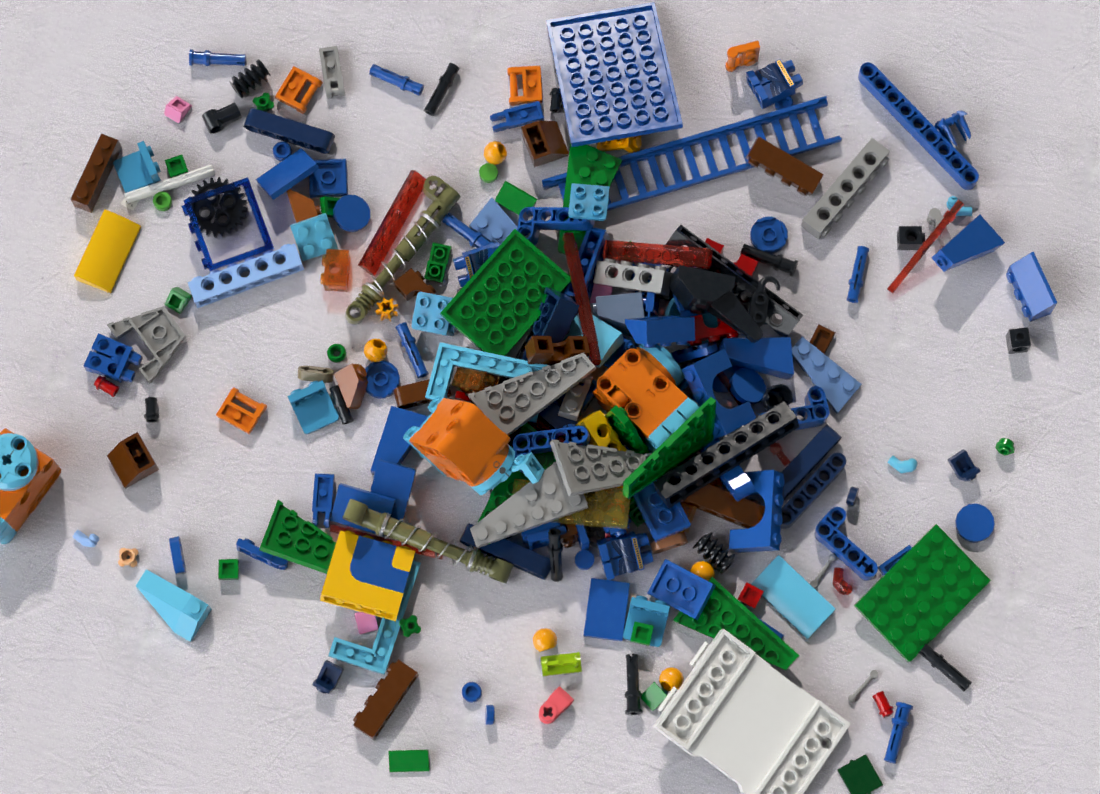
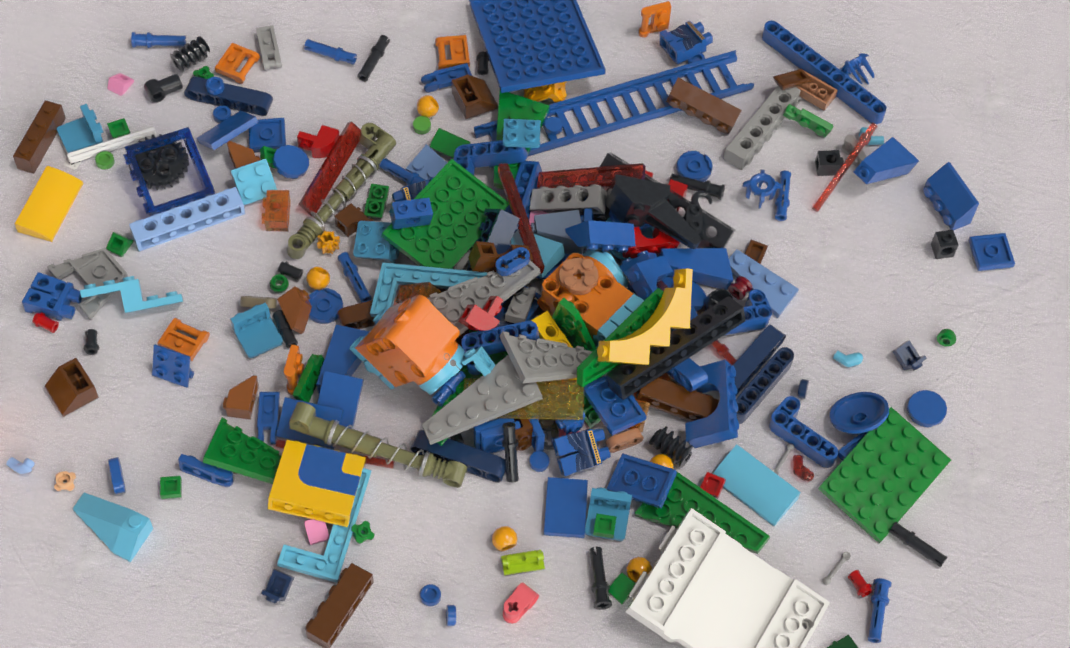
camera: 10 degrees left, 15 degrees down
(190, 362) = (131, 294): none -> medium azure bracket
(229, 443) = (171, 366): none -> blue hinge
(275, 122) = (214, 85): none -> blue tile
(297, 480) = (242, 399): none -> dark orange slope
(347, 452) = (293, 368): none -> orange plate
(348, 339) = (289, 270): none -> black pin
(363, 462) = (309, 378): none -> green hinge
(384, 193) = (320, 144): none -> red brick
(470, 294) = (411, 213): none -> blue brick
(494, 493) = (448, 389): none -> blue pin
(535, 422) = (482, 319): none -> brick
(566, 354) = (513, 262): none -> blue beam
(625, 181) = (553, 125): none -> blue tile
(625, 383) = (578, 266): none -> nougat plate
(722, 425) = (671, 313): none -> yellow arch
(801, 380) = (740, 287): none -> dark red wheel
(824, 267) = (762, 177): none -> blue piece
(881, 138) = (791, 79): none -> reddish brown tile
(892, 187) = (808, 120): none -> green hinge
(904, 147) = (817, 92): none -> nougat piece
(904, 527) = (859, 412): none -> blue dish
(1066, 350) = (991, 251): none -> blue plate

